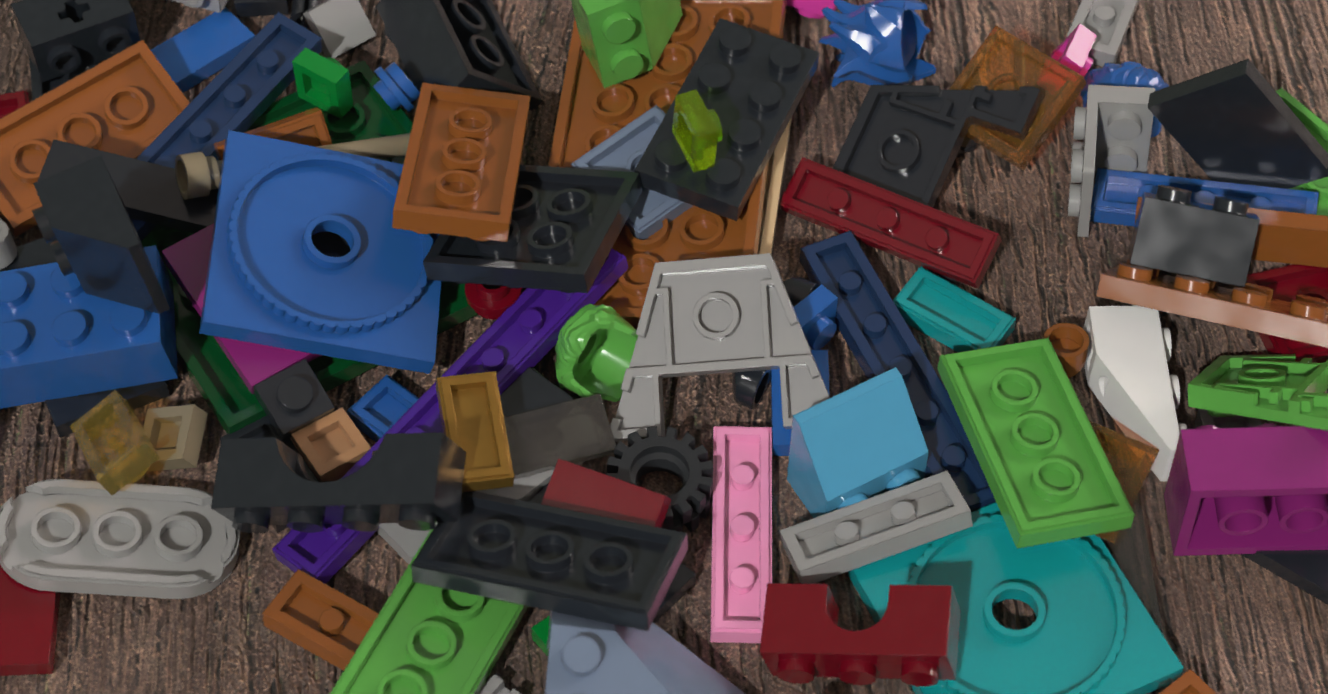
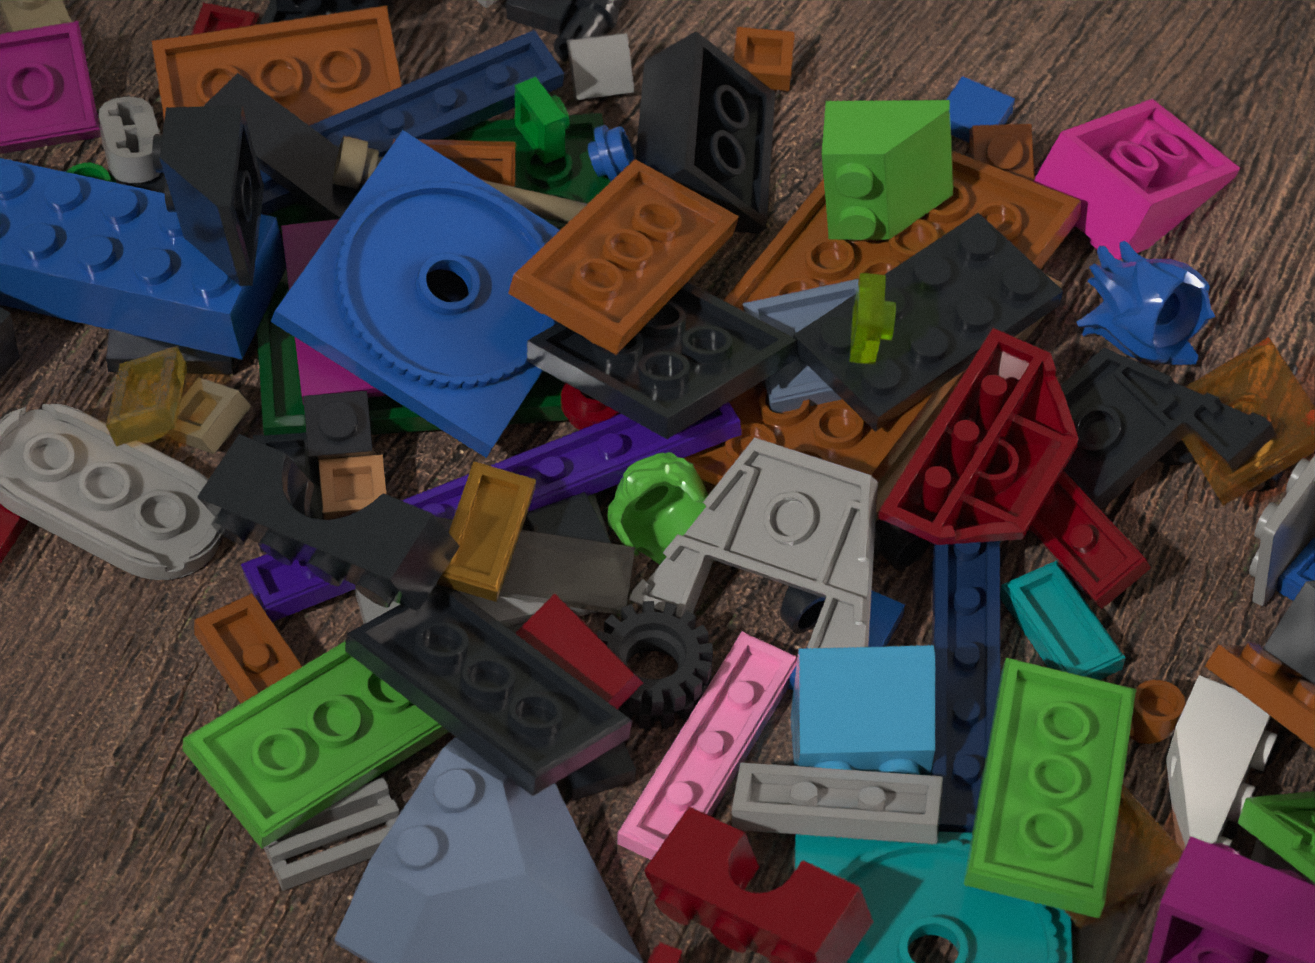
camera: 25 degrees right, 0 degrees up
(203, 48) = (444, 38): blue tile -> none
(381, 407) = (424, 470): blue tile -> none
(818, 316) = (903, 568): blue plate -> none
(839, 197) = (988, 451): none -> dark red wedge

